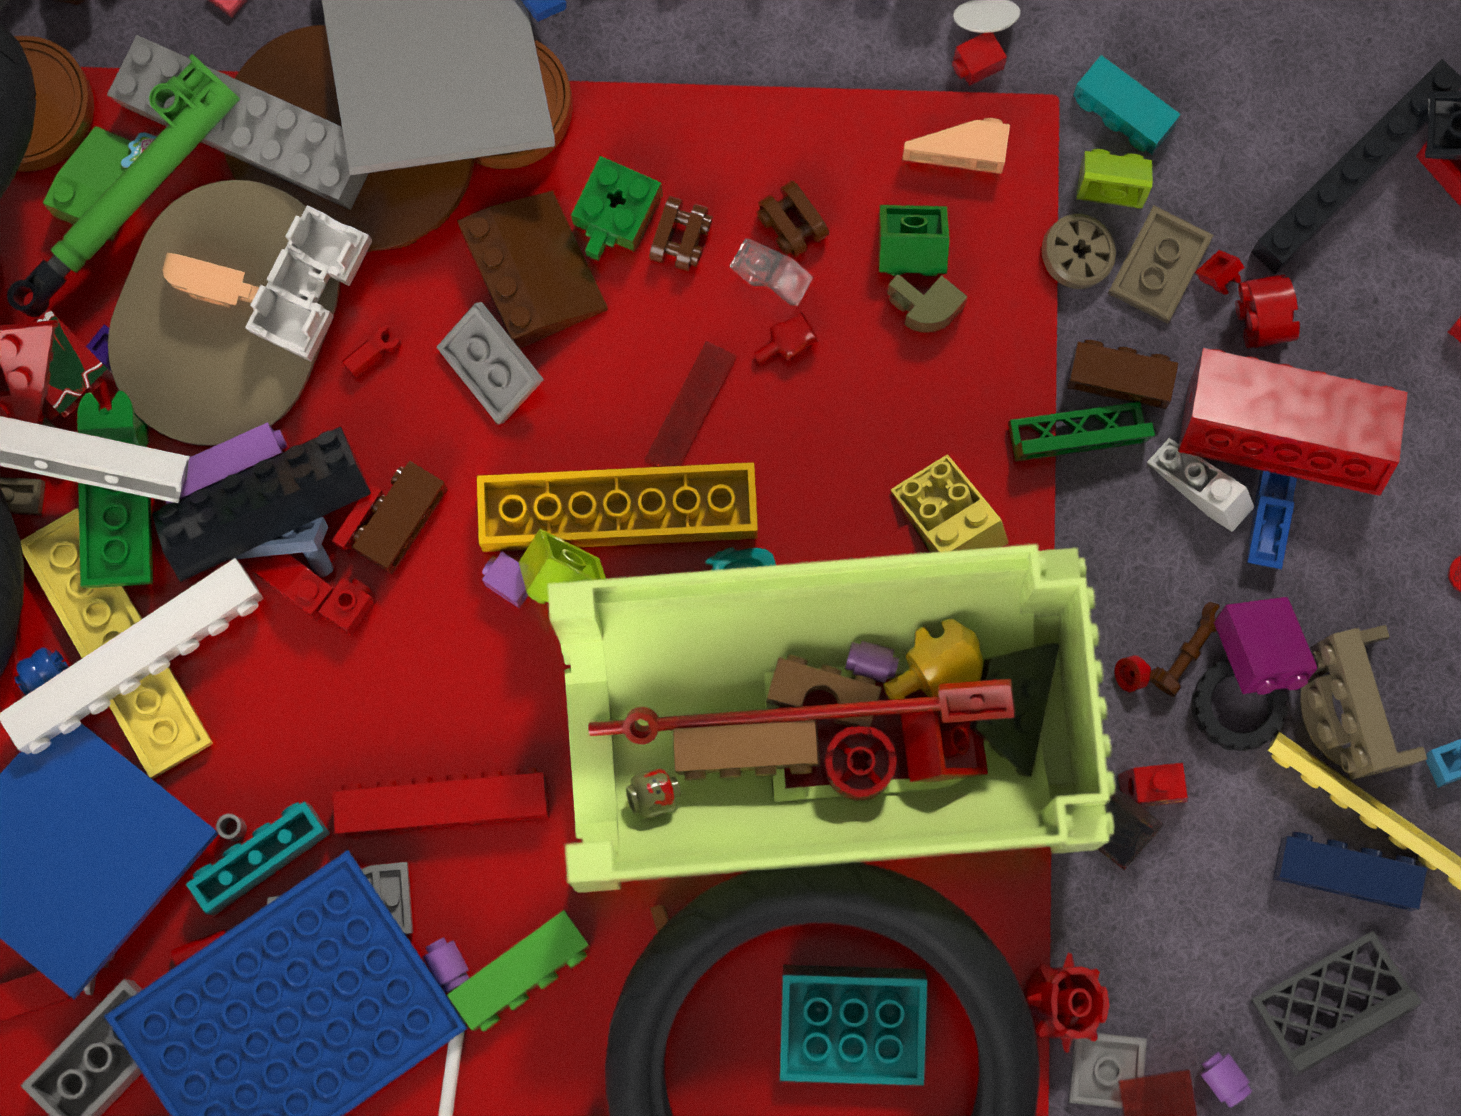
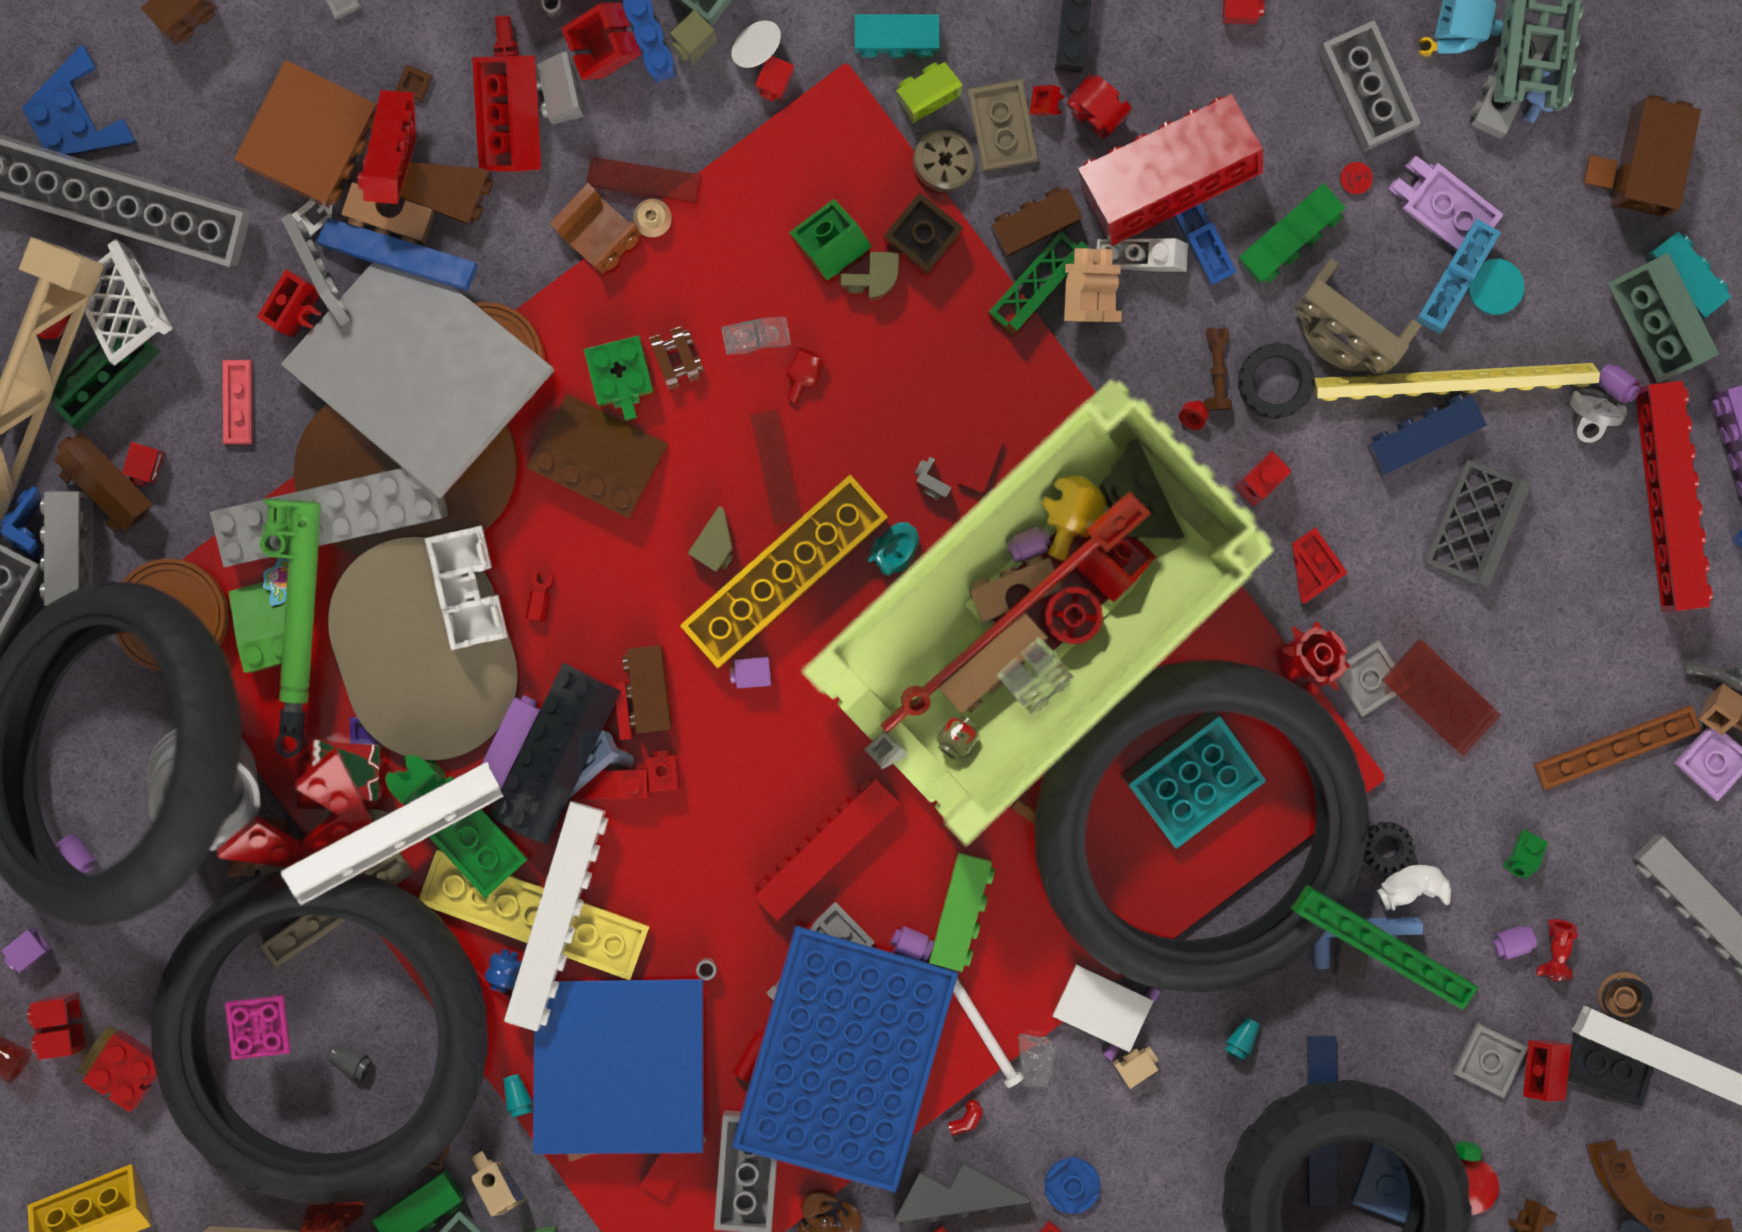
camera: 40 degrees left, 10 degrees up
(207, 280) = (400, 638): light nougat piece -> none
(258, 858) = (741, 975): teal brick -> none
(489, 363) = (624, 543): light grey tile -> none
(555, 561) = (786, 645): lime slope -> none
(574, 751) = (885, 750): none -> light grey slope
(575, 429) = (714, 543): none -> olive slope
(701, 63) = (595, 229): none -> dark orange panel
(762, 94) = (644, 221): none -> tan cone
(780, 805) = (1041, 682): none -> clear piece
(783, 56) = (644, 180): none -> clear red tile
(789, 237) = (725, 295): reddish brown brick -> none
(825, 542) = (932, 486): none -> light grey bracket
(949, 510) = (999, 405): light yellow slope -> none
(968, 146) = (818, 145): light nougat slope -> none
(1005, 298) = (923, 233): none -> dark brown brick
(1128, 473) = (1092, 287): none -> light nougat hips
(1132, 829) = (1270, 517): clear smoke tile -> none
(1139, 913) = (1314, 565): none -> red wing
(1225, 1079) = (1446, 626): medium lavender brick -> none
(1265, 645) = (1265, 332): magenta brick -> none
(1364, 575) = (1292, 233): none -> green brick

